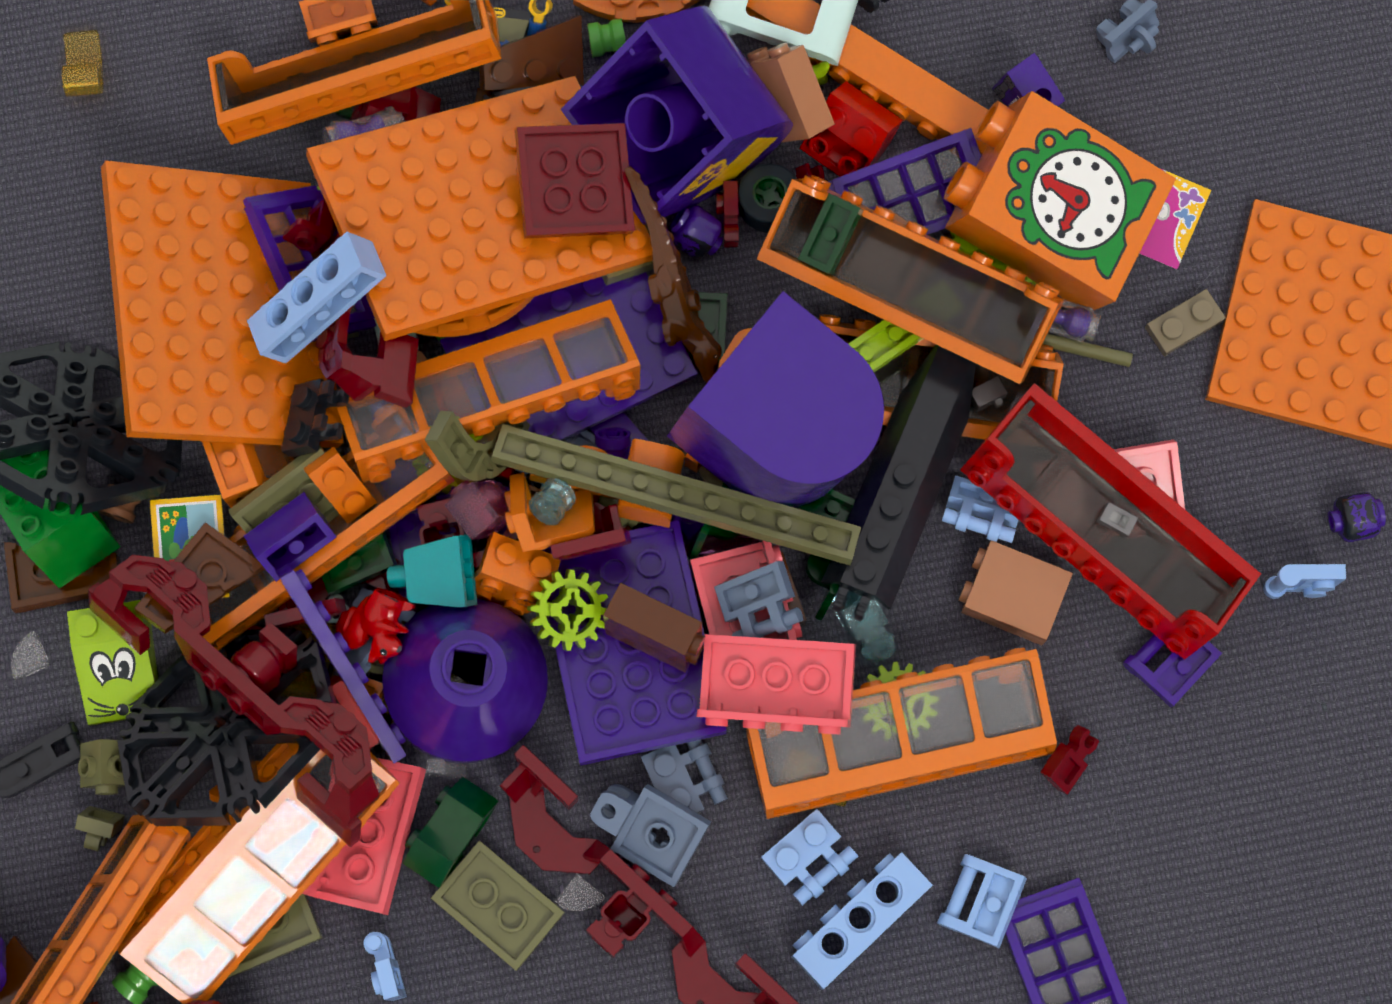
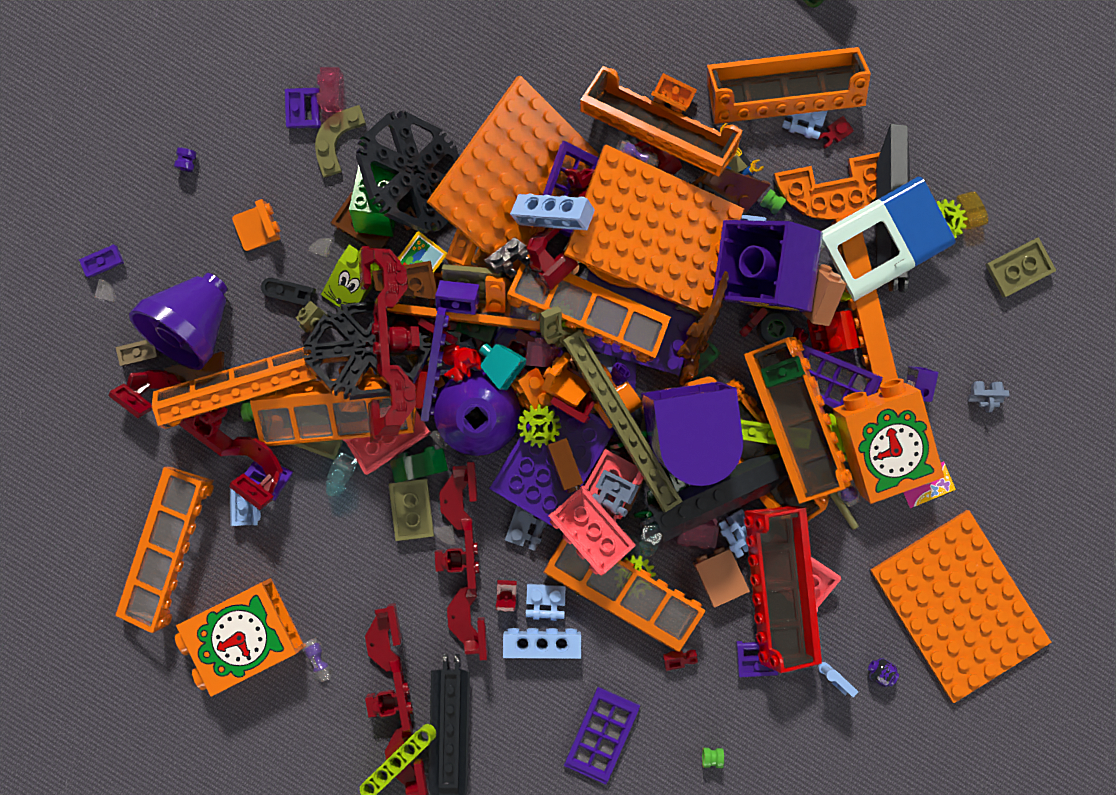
camera: 45 degrees right, 10 degrees up
(83, 64) = (552, 22): clear yellow panel -> none
(99, 825) = (290, 338): olive tile -> none
(344, 944) = (339, 474): none -> clear light blue brick
(387, 977) = (345, 499): light blue plate -> none
(552, 501) = (571, 379): clear light blue wheel -> none
(574, 180) = (700, 256): dark red plate -> none
(634, 821) = (492, 526): sand blue plate -> none
(696, 232) = (732, 317): dark purple head -> none
(745, 899) = (506, 595): none -> dark red bracket
(935, 557) = (702, 536): none -> clear pink brick
(988, 393) = (785, 489): flat silver piece -> none
(993, 903) = (596, 686): light blue plate -> none
(1117, 519) = (786, 589): flat silver piece -> none
(1185, 322) = (892, 533): dark tan plate -> none
(1247, 852) = (713, 758): none -> bright green wheel

